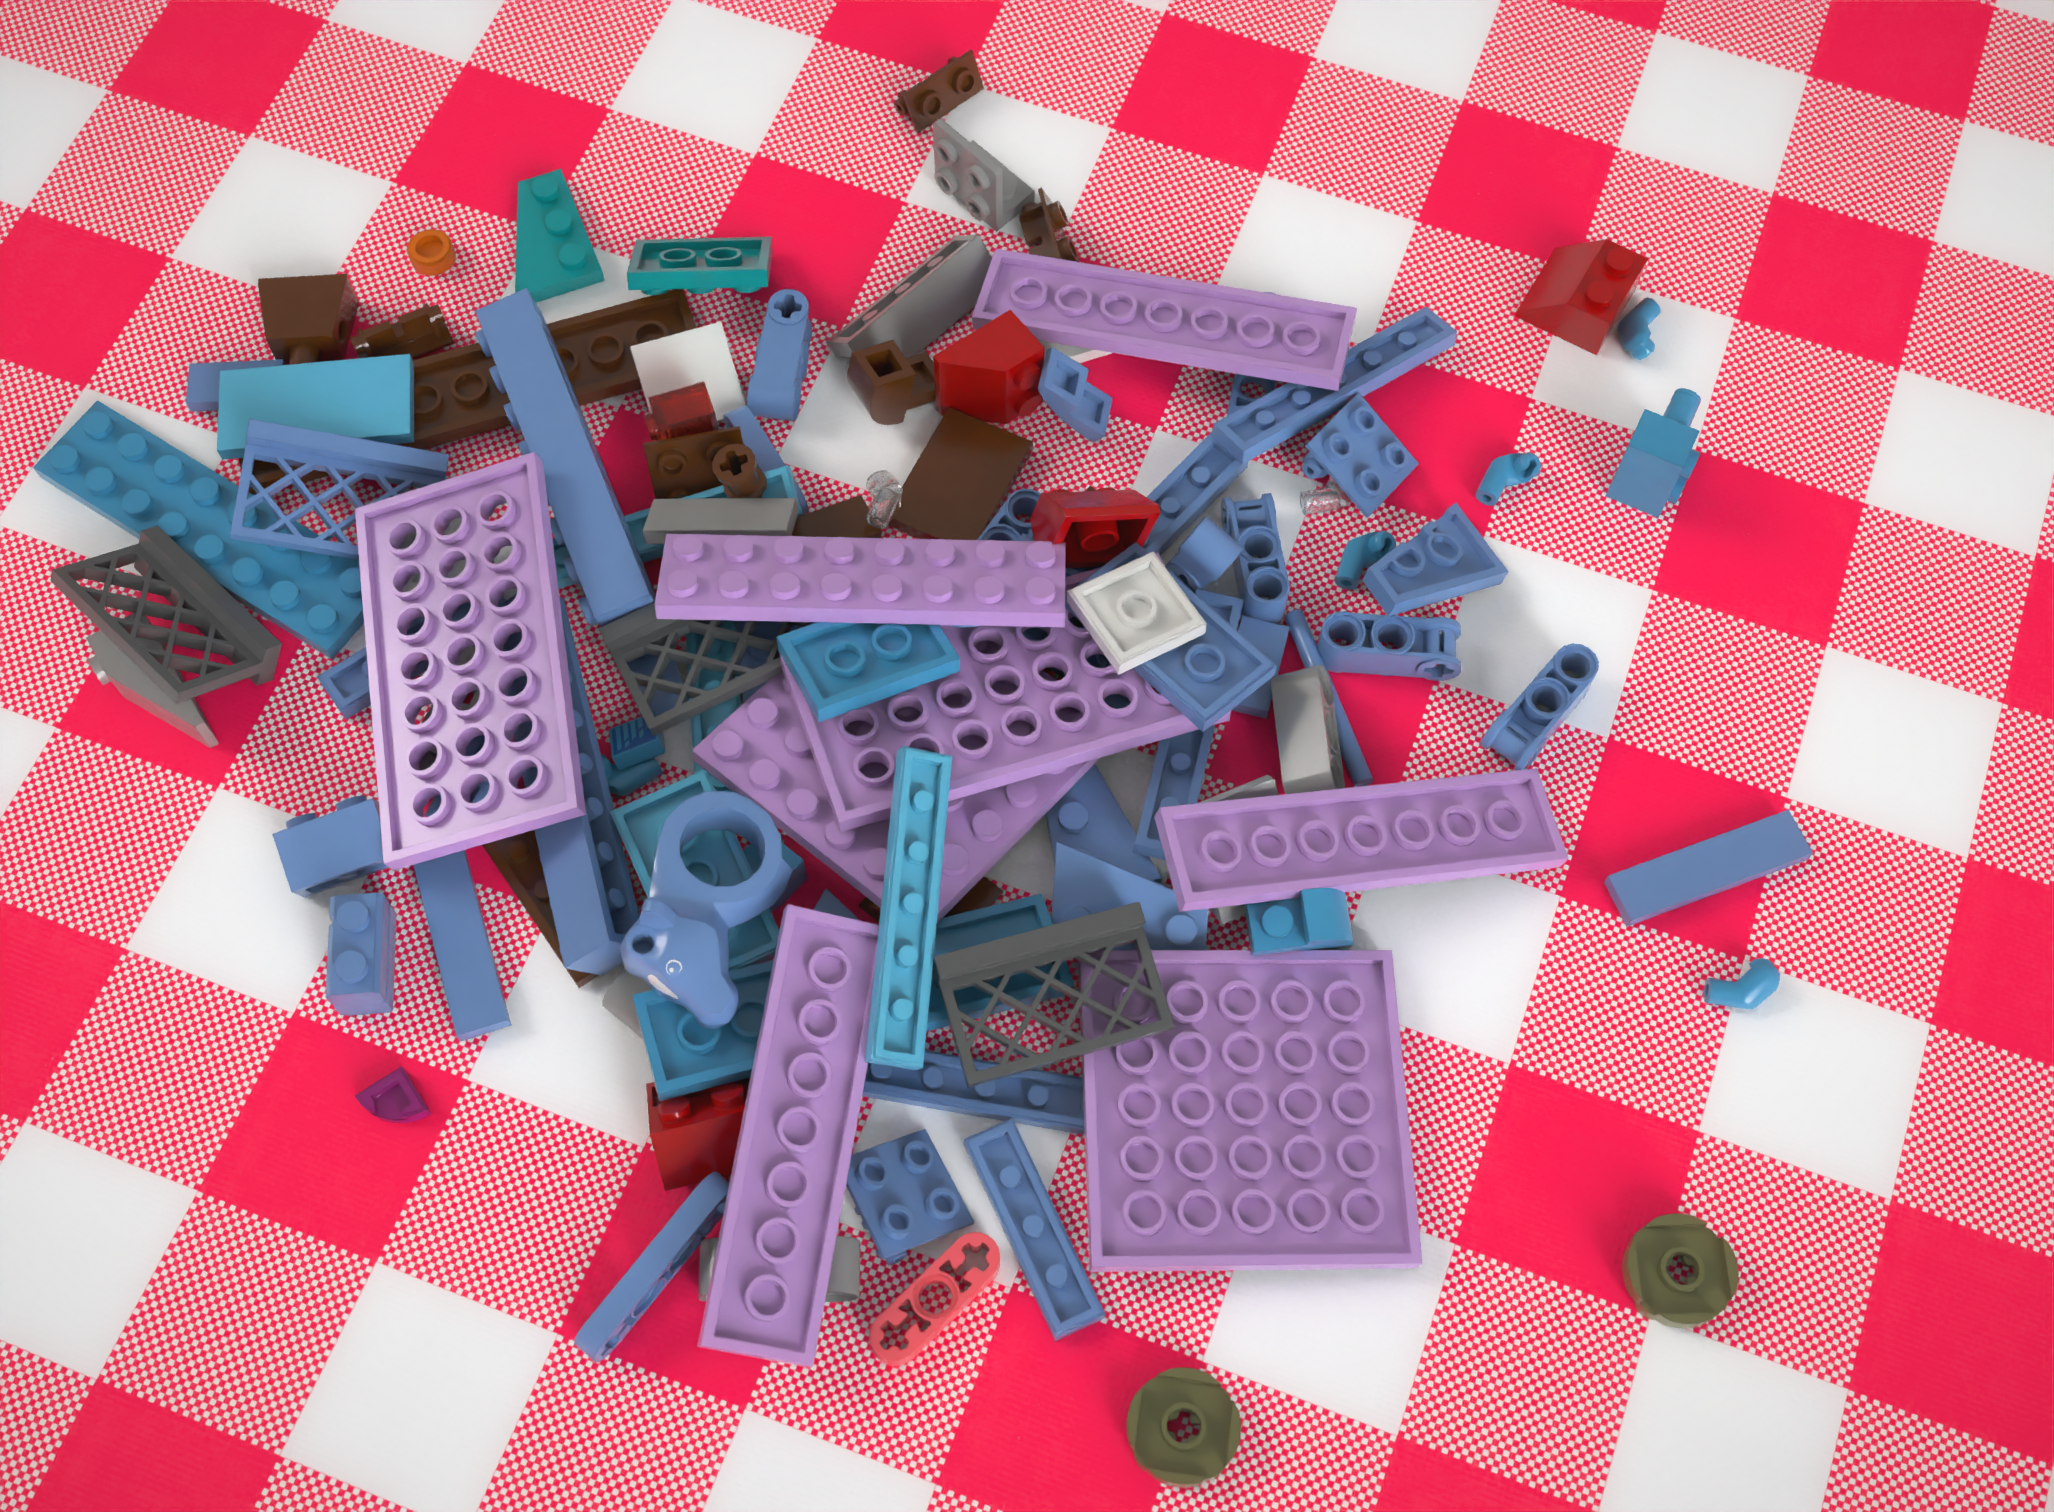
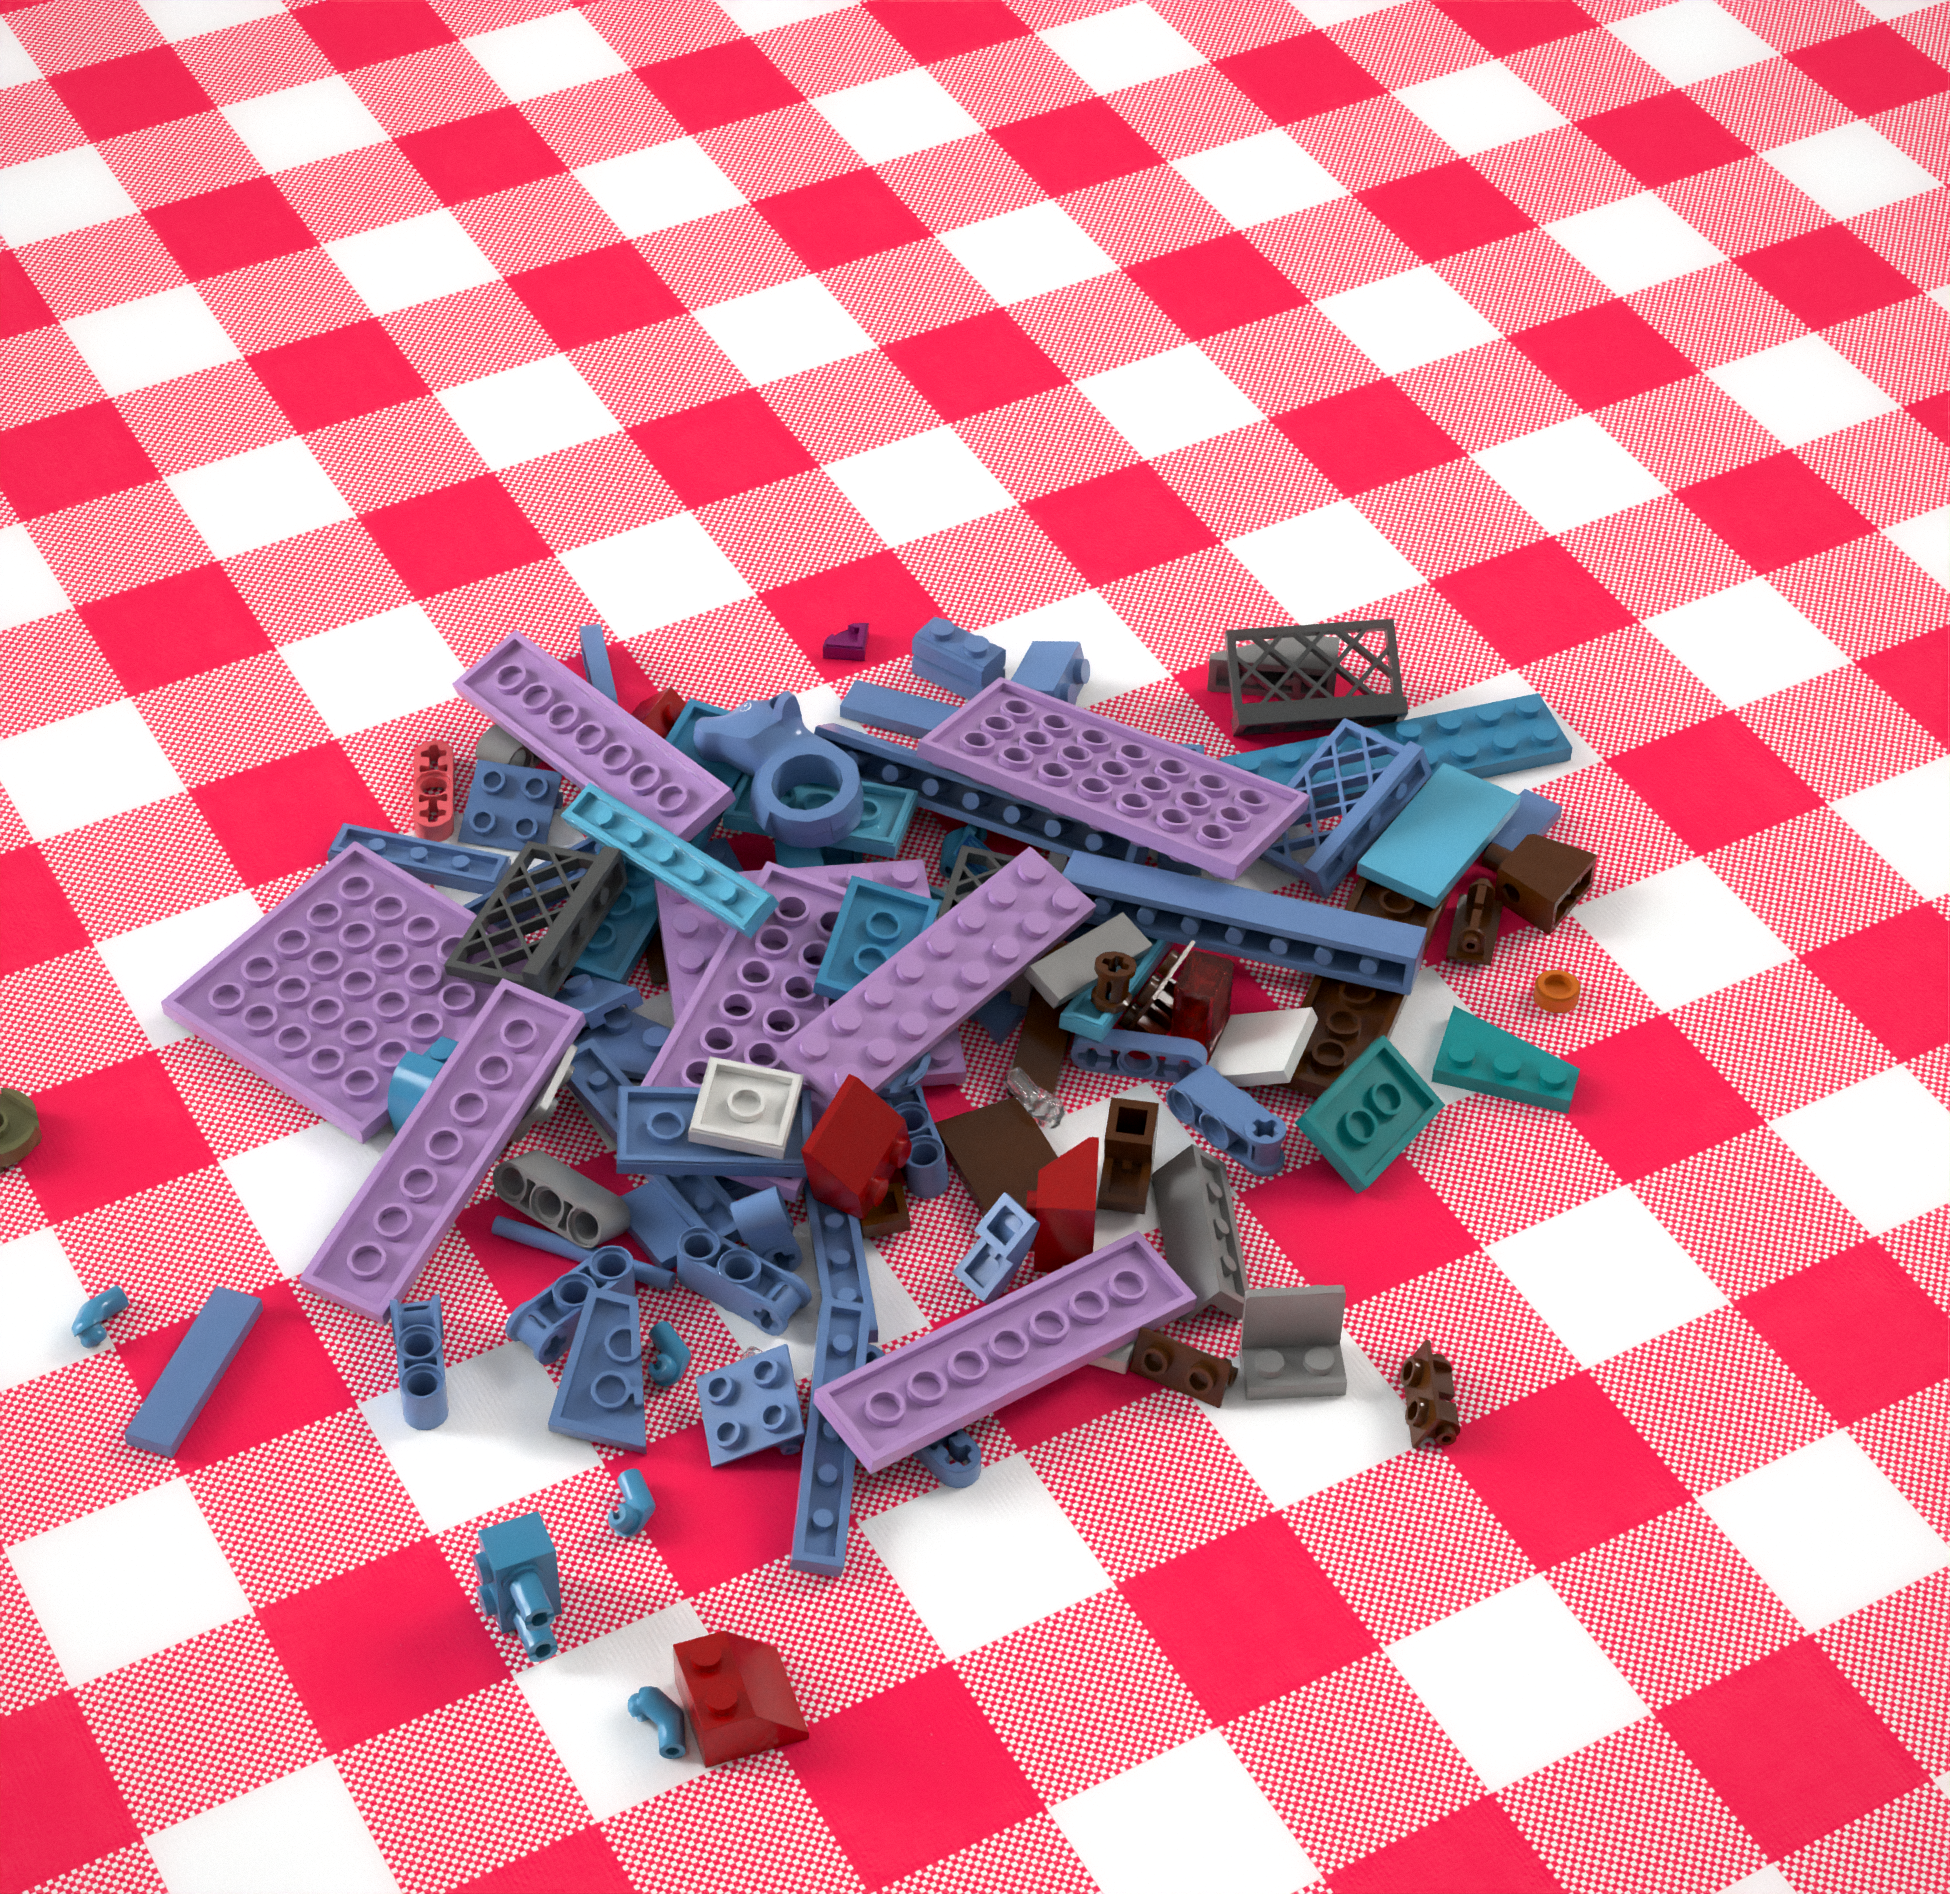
camera: 130 degrees right, 20 degrees down
(1209, 1408) = (221, 863): olive plate -> none

